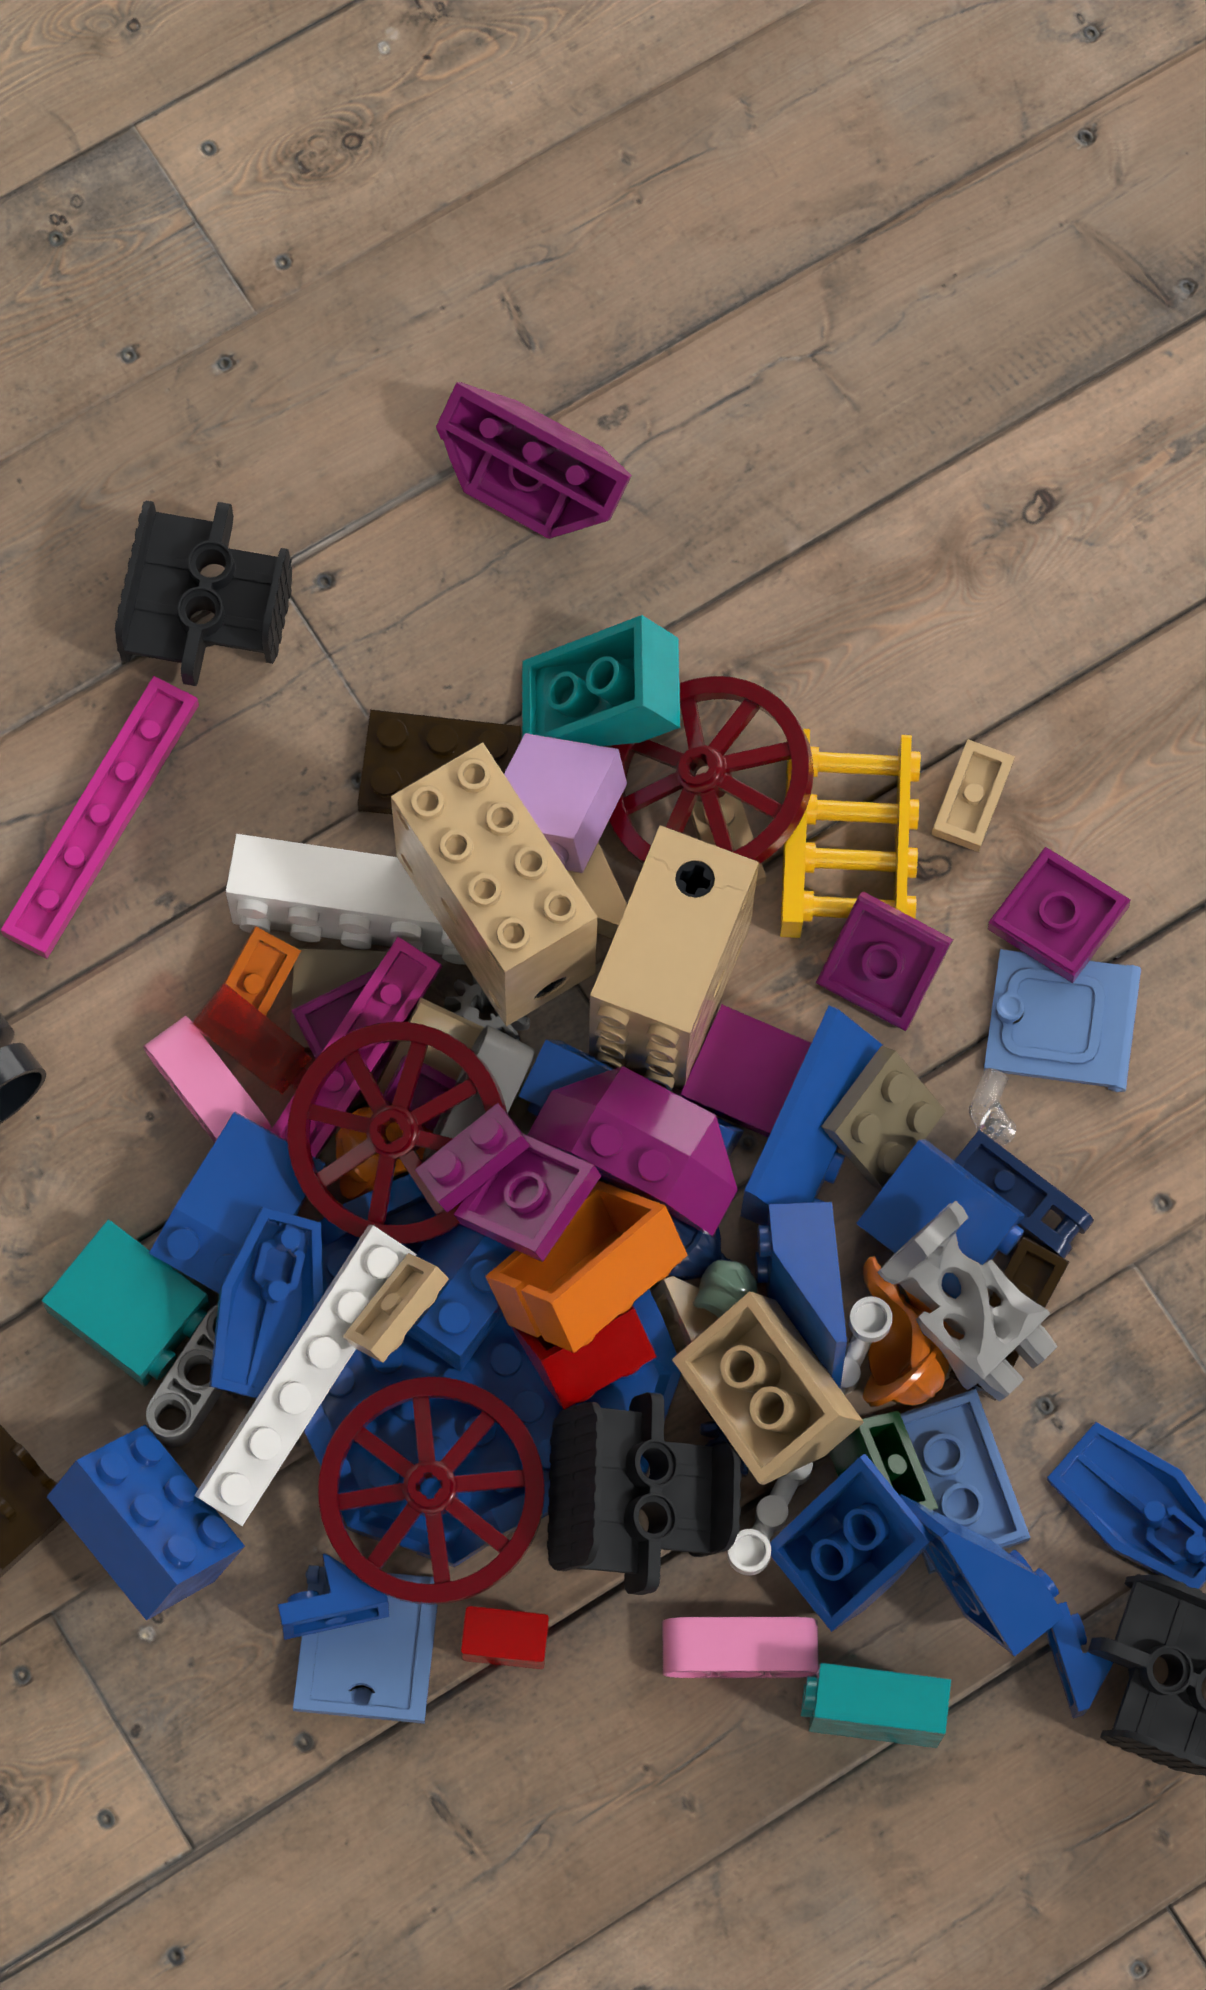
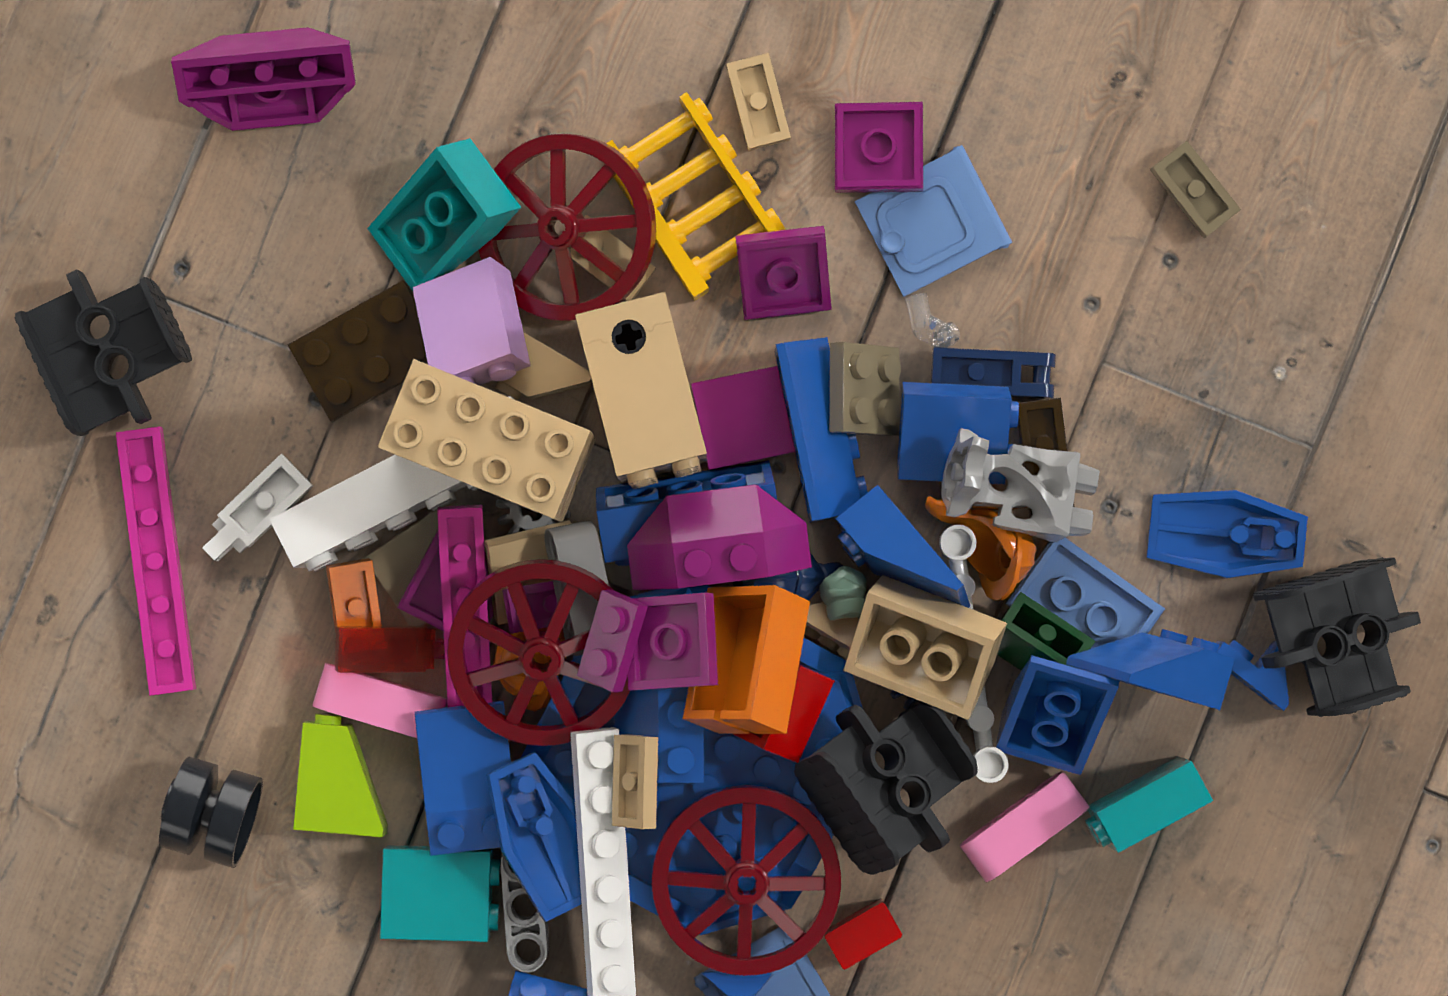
camera: 35 degrees left, 15 degrees up
(109, 1131) = (335, 783): none -> lime slope
(210, 834) = (249, 512): none -> white hinge

